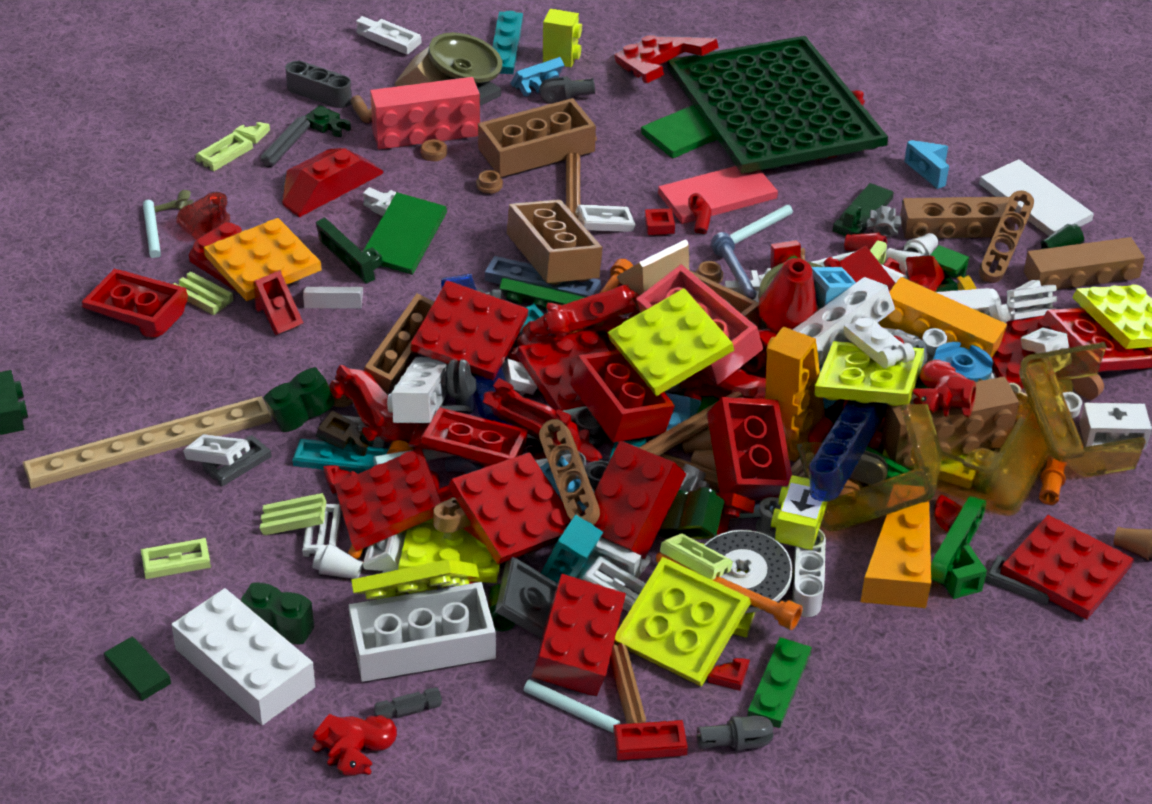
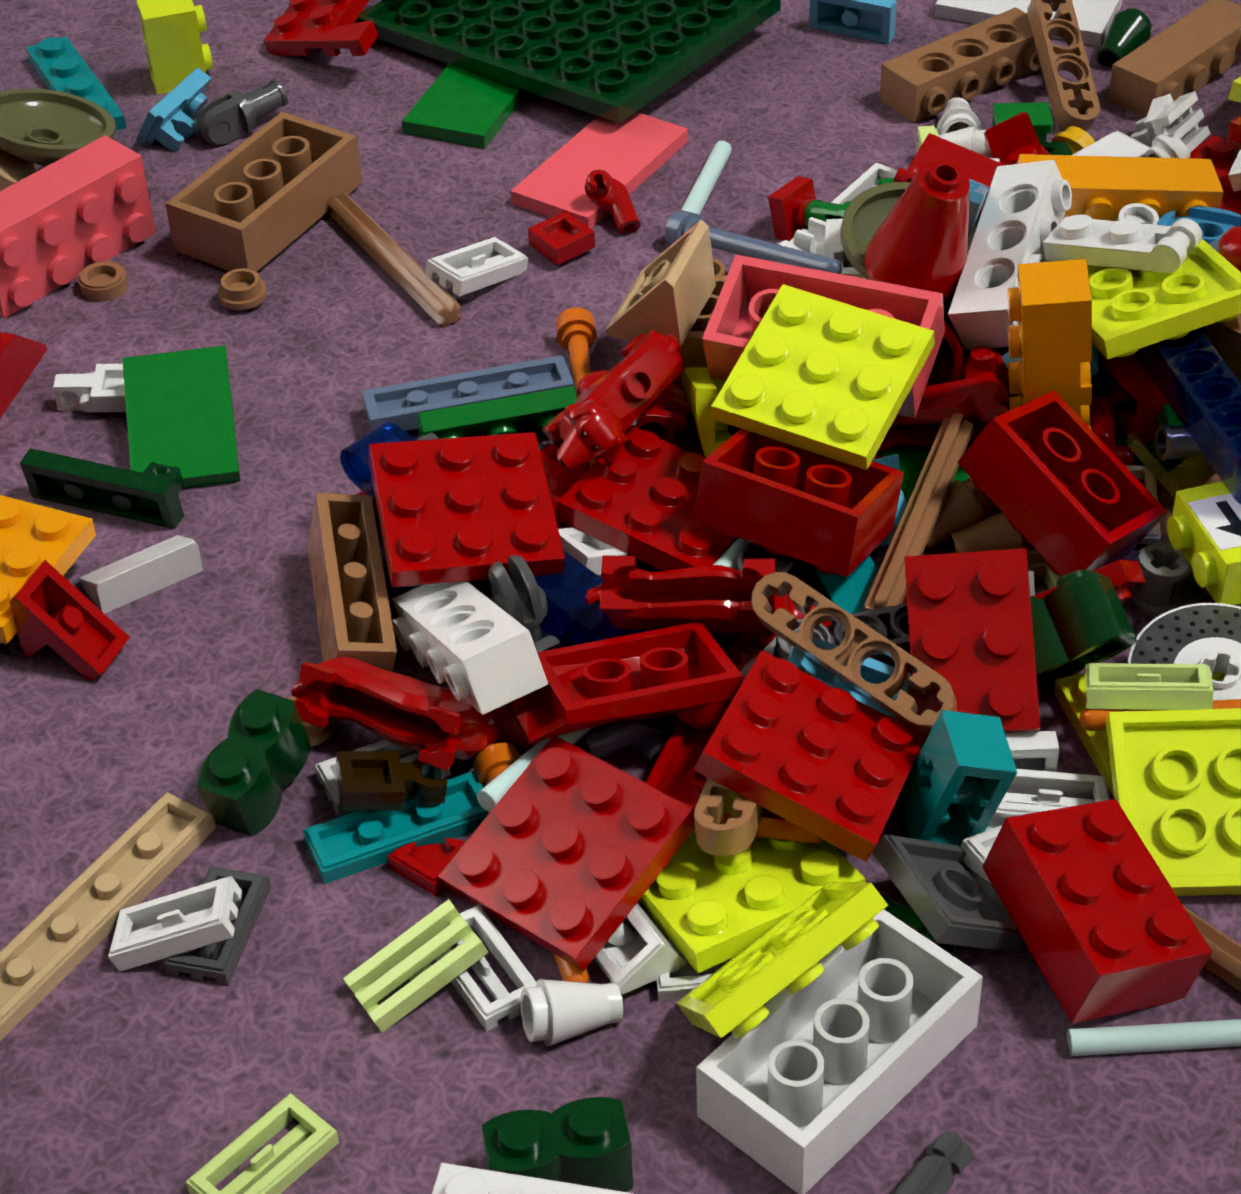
camera: 30 degrees left, 0 degrees up
(554, 241) = (450, 324): medium nougat brick -> none
(856, 215) = (827, 110): dark green hinge -> none
(857, 241) = (887, 146): red cone -> none
(884, 221) = (880, 108): light grey gear -> none

